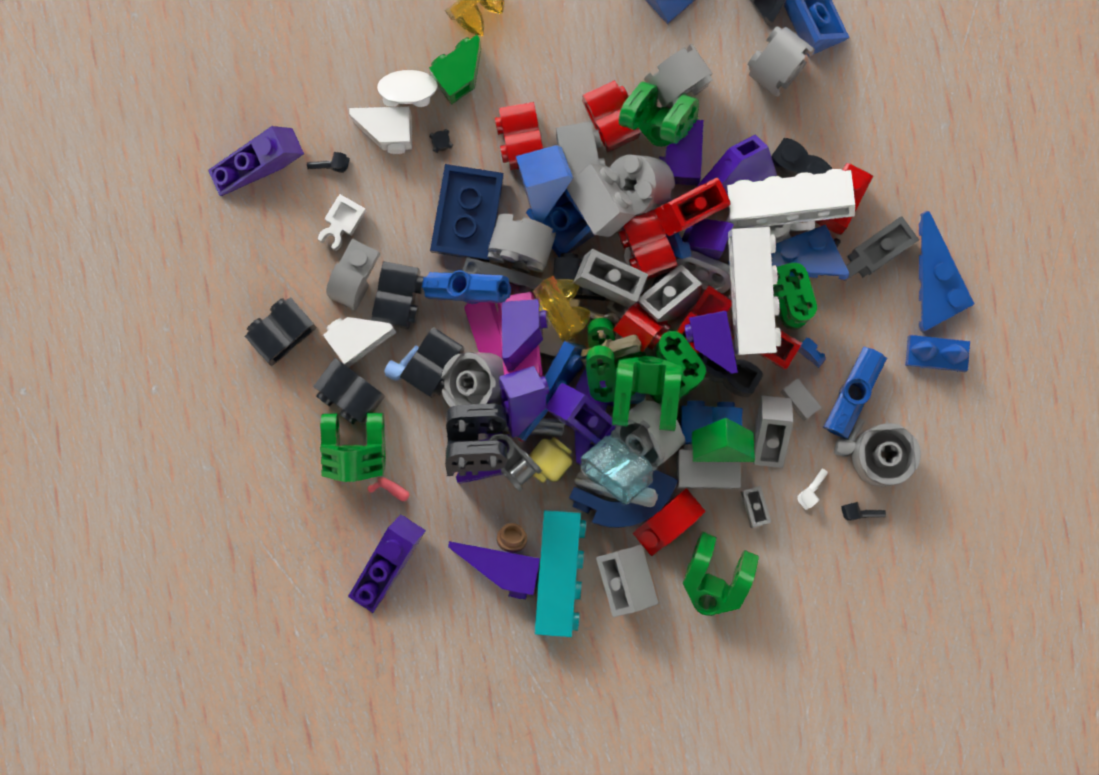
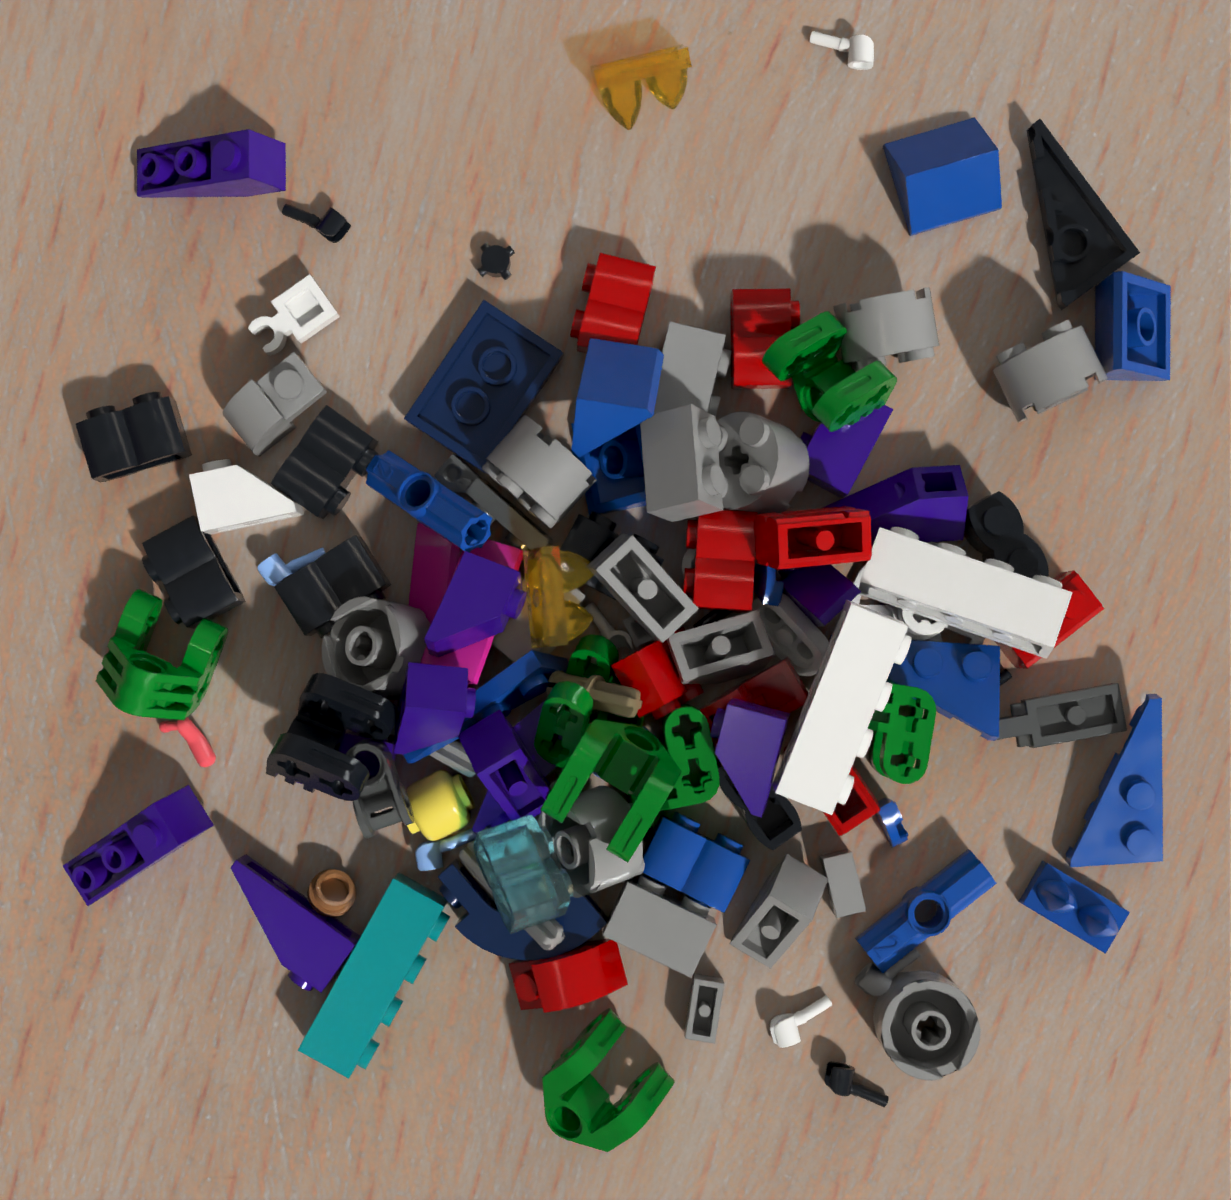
camera: 25 degrees right, 5 degrees up
(386, 126) = (425, 205): white slope -> none
(407, 88) = (479, 160): white dish -> none
(458, 70) = (569, 167): green slope -> none
(557, 491) = (430, 852): none -> light blue hand
(627, 581) = (471, 1029): light grey brick -> none
(723, 443) = (695, 904): green slope -> none

